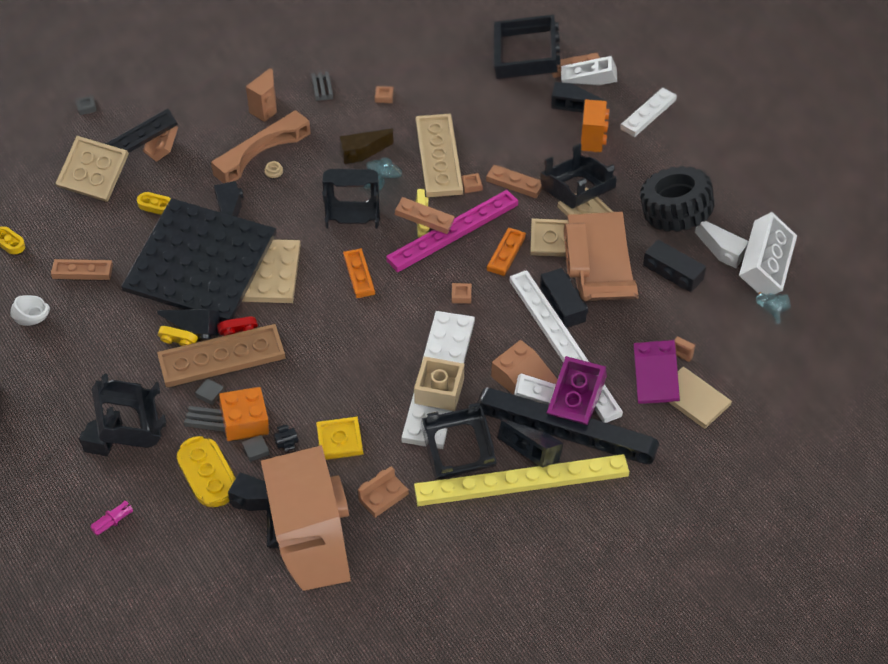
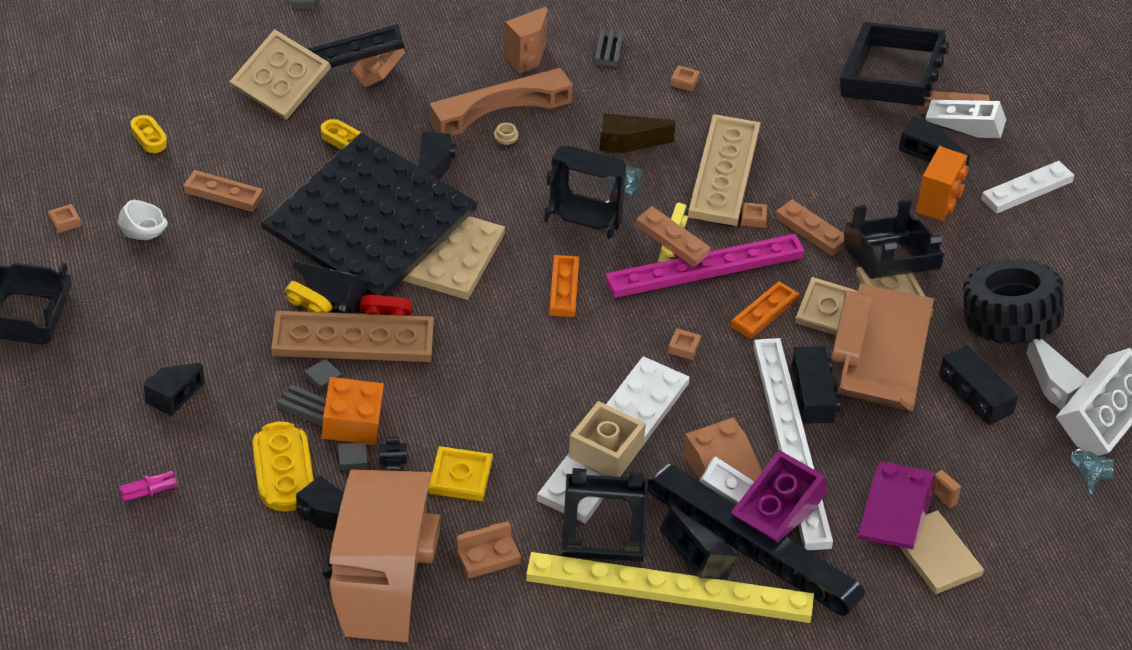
camera: 15 degrees right, 5 degrees down
(133, 396) = (221, 350): black piece -> none
(385, 168) = (647, 167): clear light blue dish -> none

